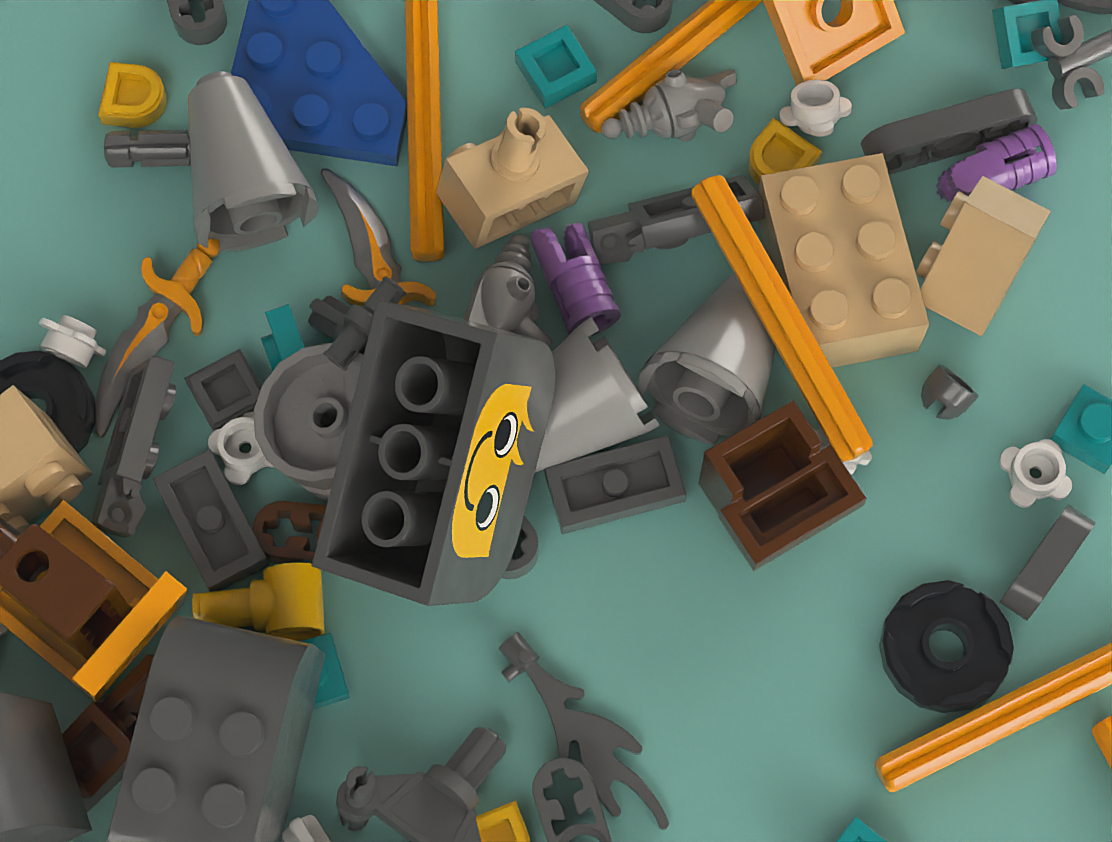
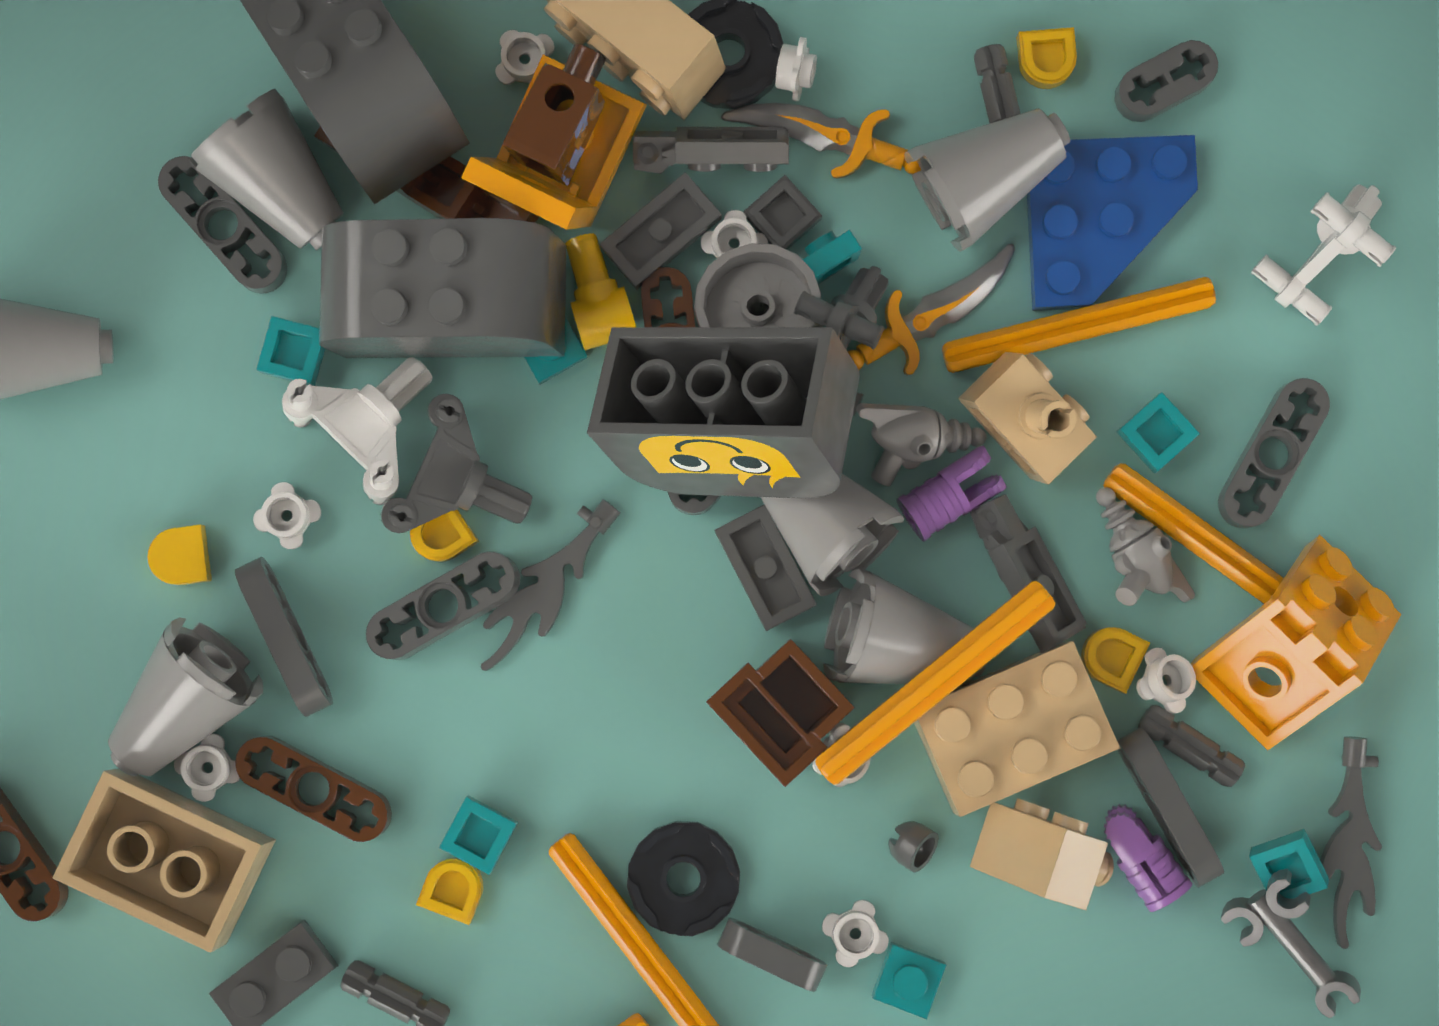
camera: 80 degrees right, 15 degrees up
(888, 100) = (1192, 746): none -> dark grey axle

